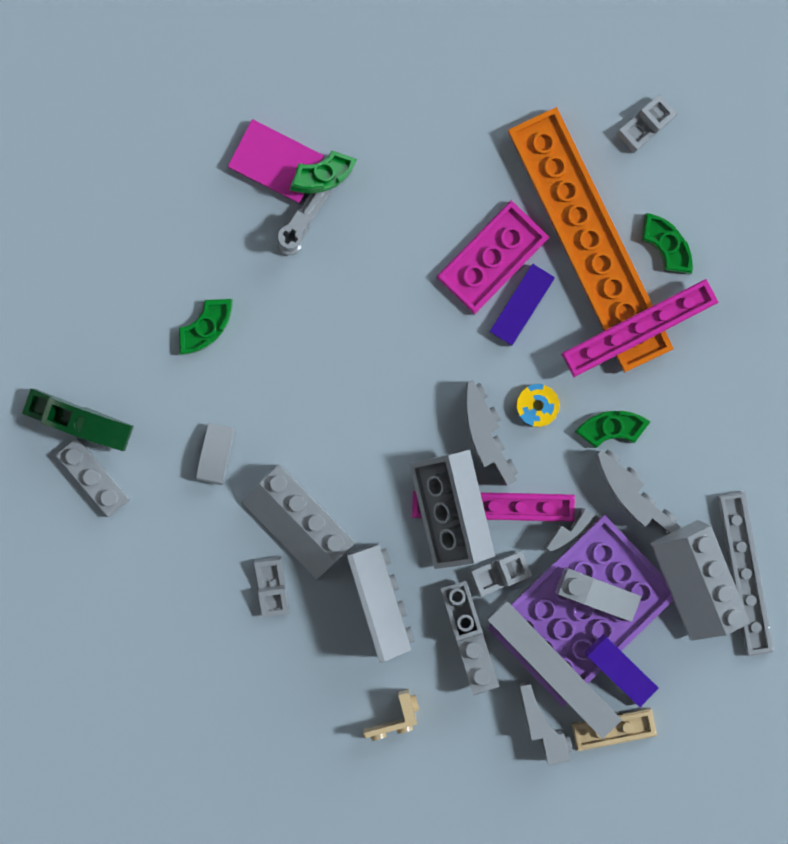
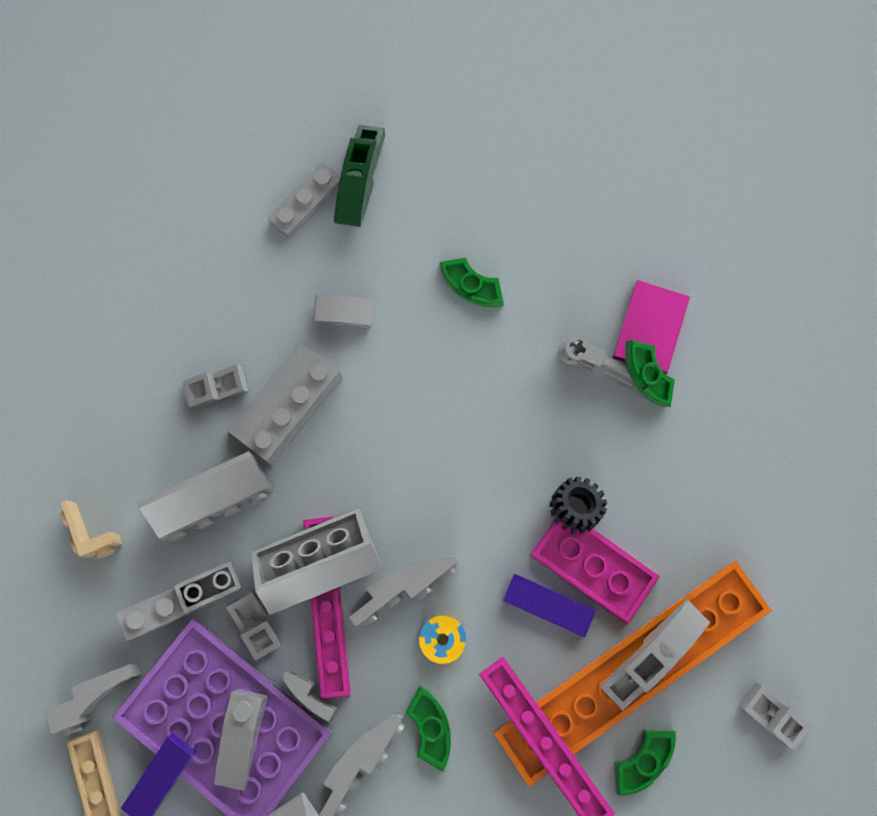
camera: 80 degrees right, 10 degrees down
(431, 249) = (588, 495): none -> black tyre
(554, 669) = (150, 702): light grey tile -> none
(580, 217) = (656, 656): none -> light grey slope

